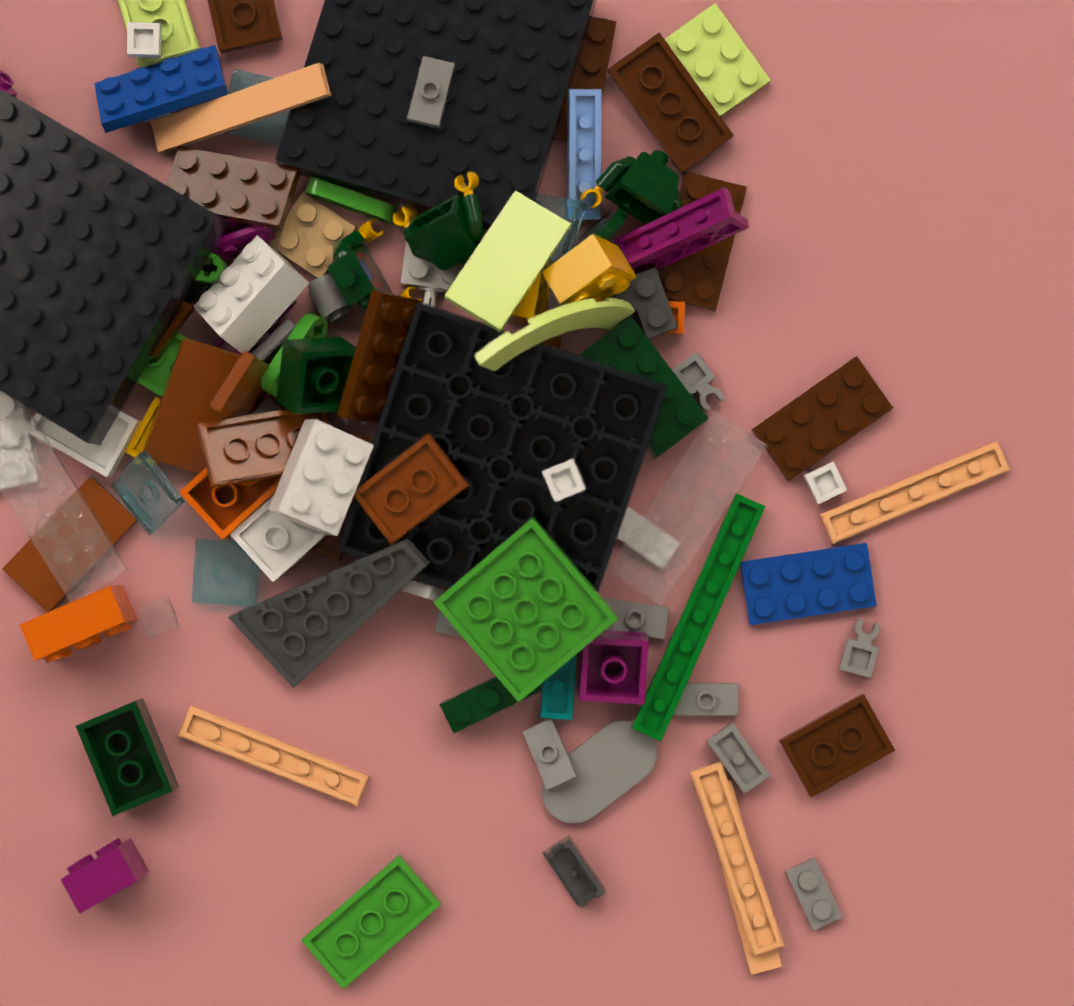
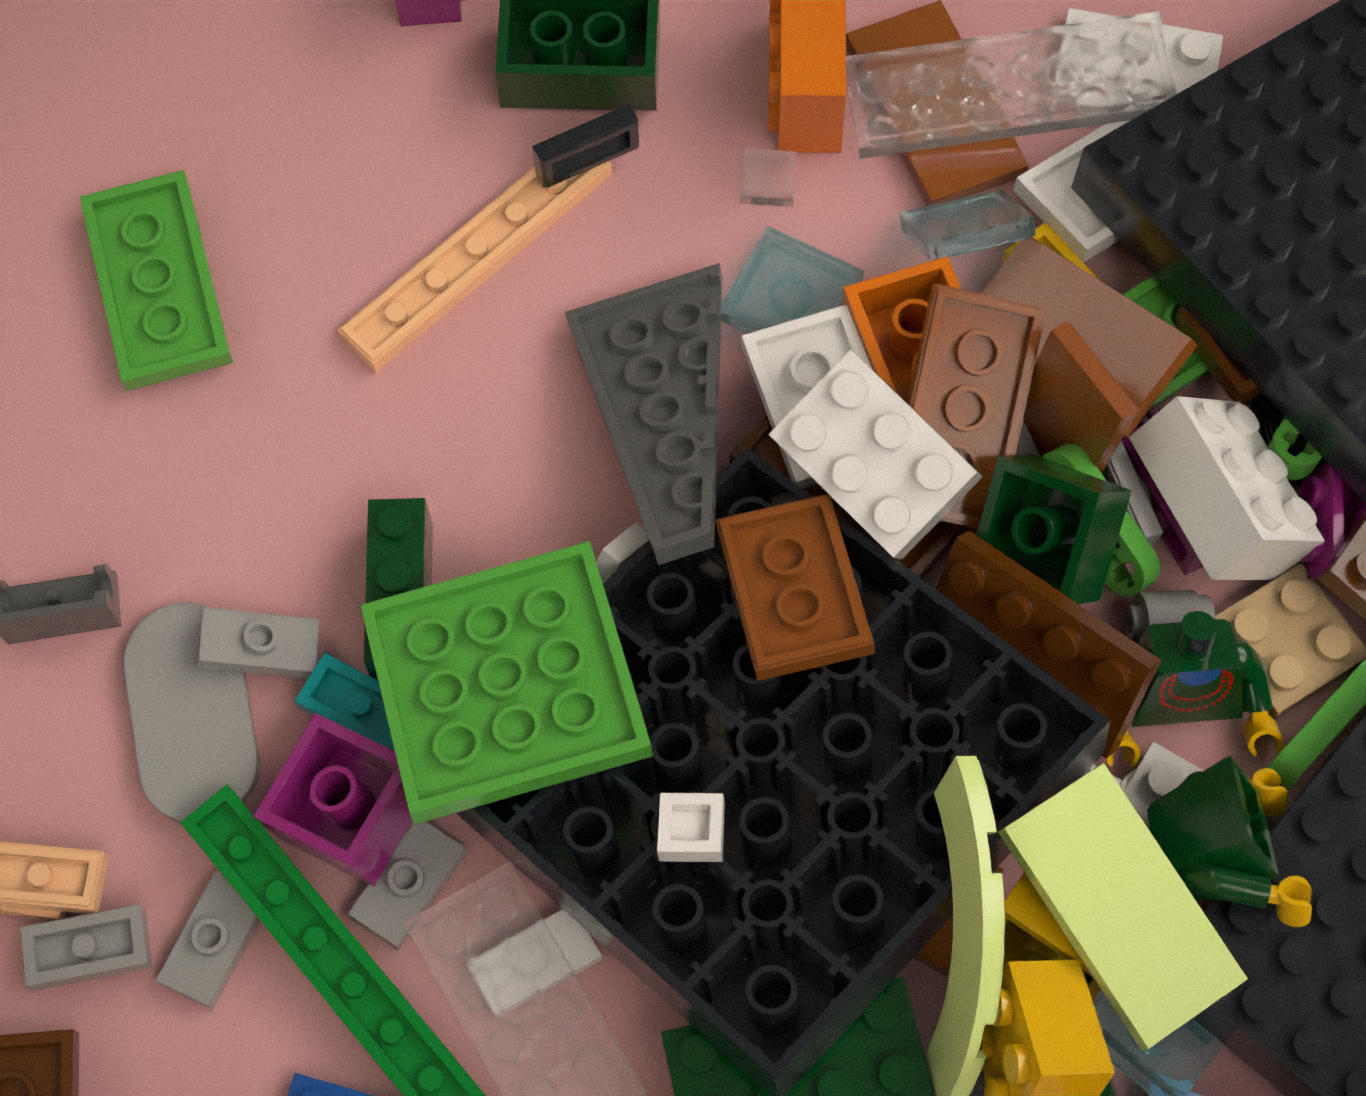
camera: 110 degrees right, 20 degrees down
(191, 721) = (586, 146): none -> black tile

